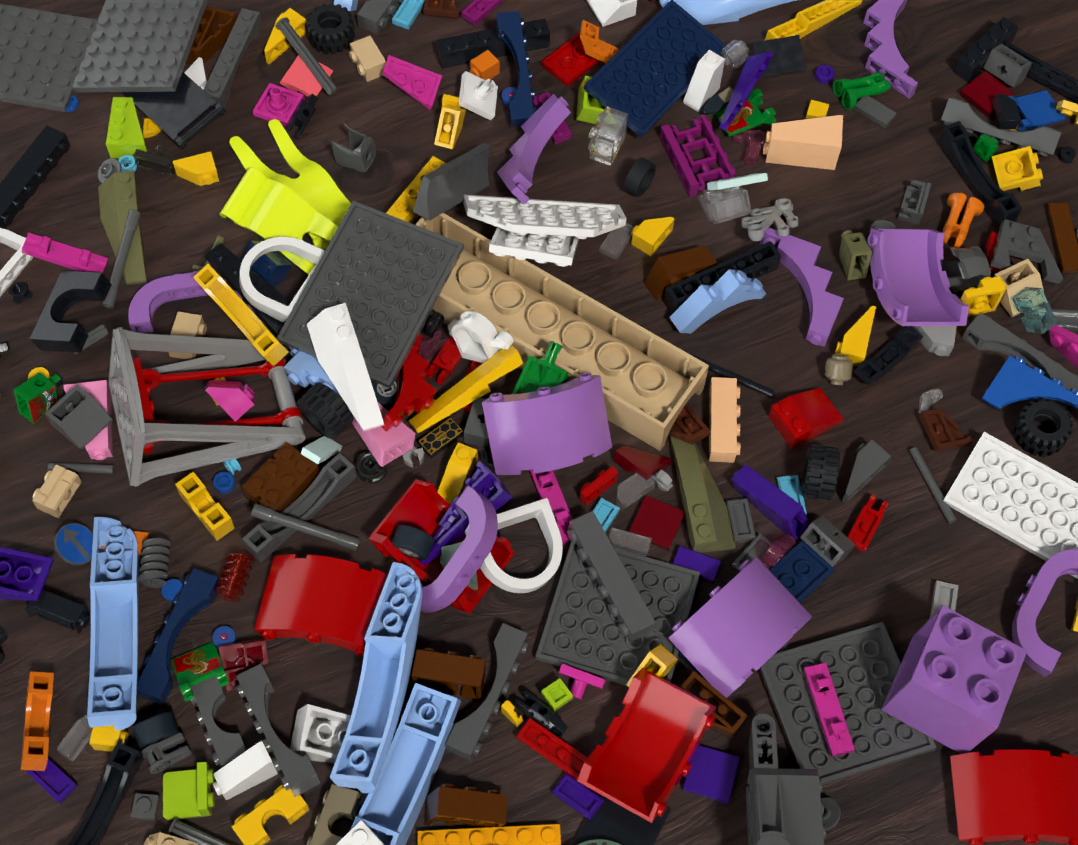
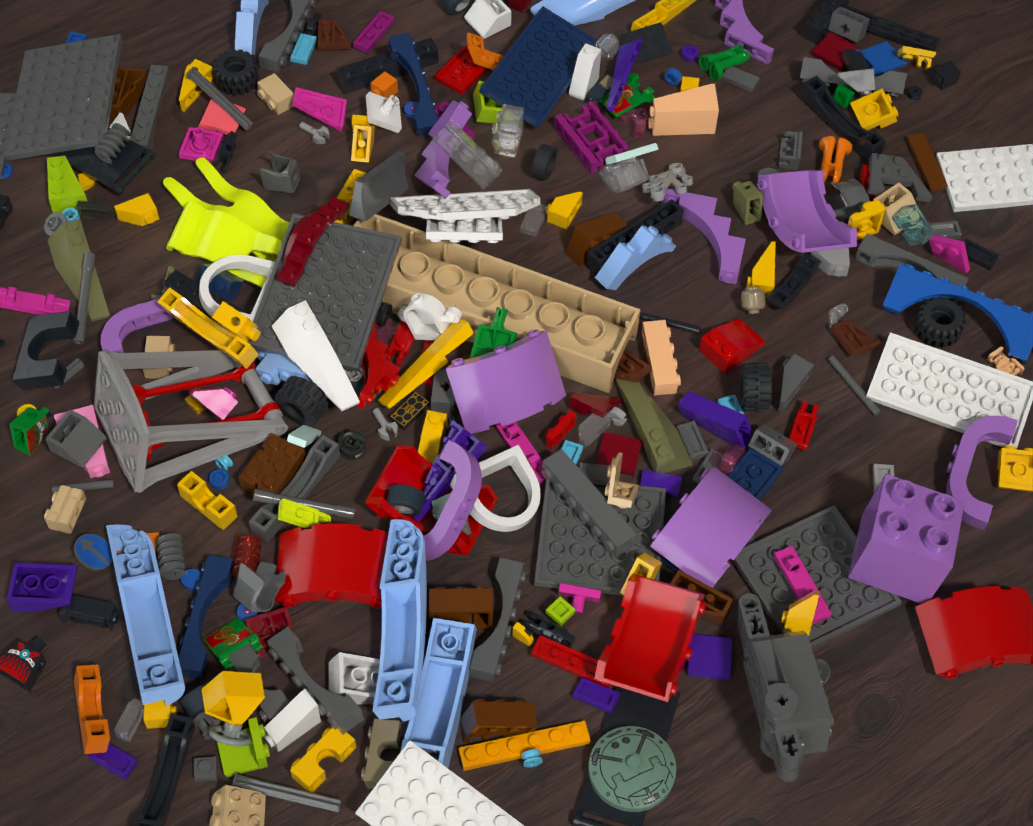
camera: 10 degrees left, 5 degrees down
(181, 91) = (112, 142): none -> dark grey piece
(182, 740) = (232, 699): none -> yellow piece
(240, 615) = (258, 589): none -> dark grey piece
(268, 315) = (236, 322): none -> yellow torso
(300, 539) = (300, 514): none -> neon yellow hinge
(361, 229) = (306, 236): none -> dark red piece
(387, 444) = (358, 421): bright pink slope -> none
(411, 107) = (317, 133): none -> light grey bar
(557, 157) = (467, 154): none -> clear slope
(647, 571) = (619, 493): none -> tan bracket
(800, 98) = (673, 76): none -> blue tile
(819, 745) = (801, 613): none -> yellow slope
(1006, 132) = (859, 80): none -> flat silver slope

